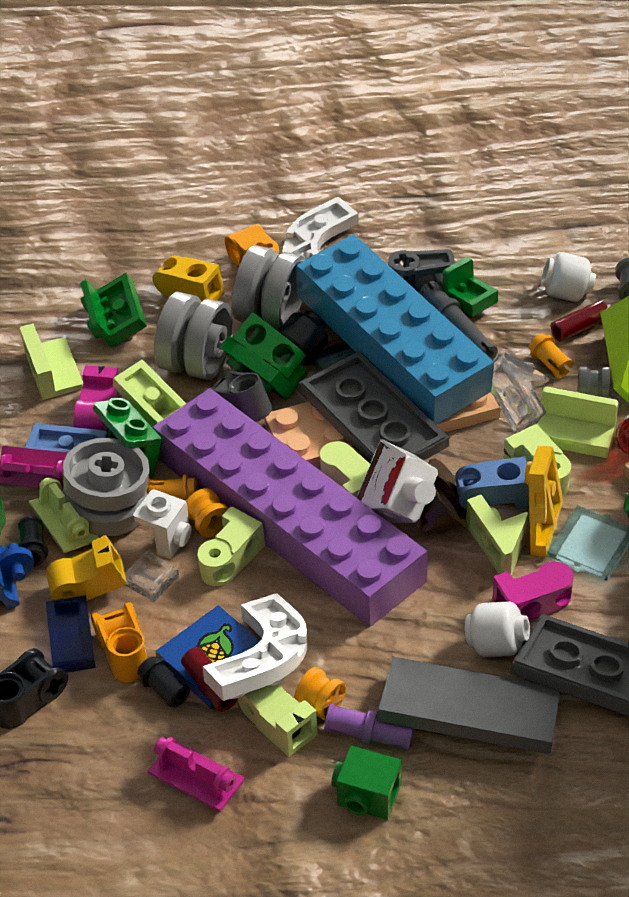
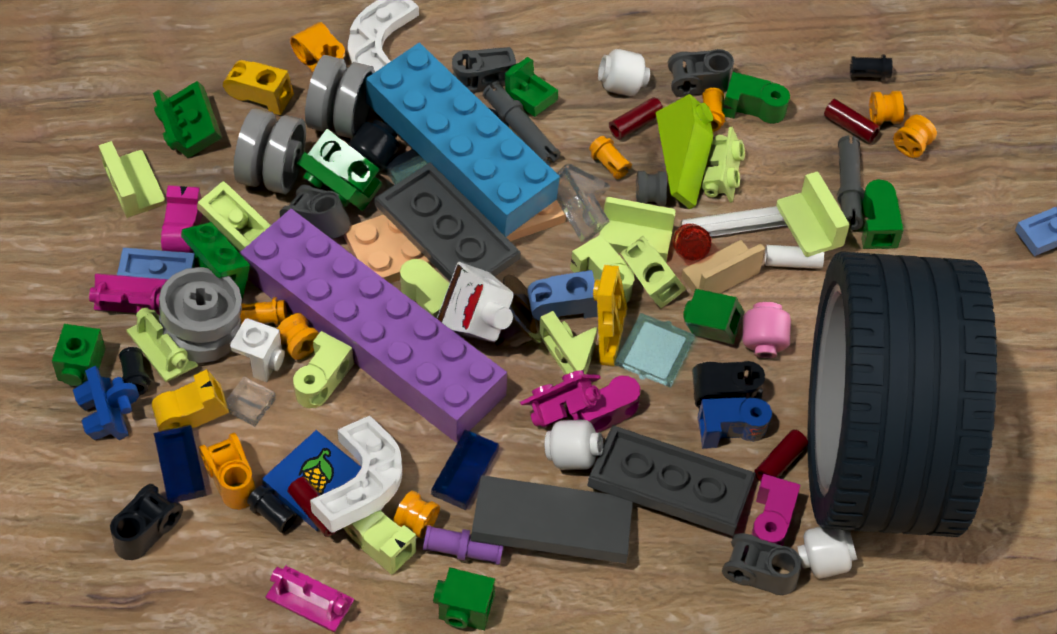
camera: 10 degrees left, 10 degrees up
(373, 653) = (464, 469): none -> clear blue tile
(501, 571) = (574, 391): none -> dark pink hinge
(593, 463) = (653, 272): none -> yellowish green leg

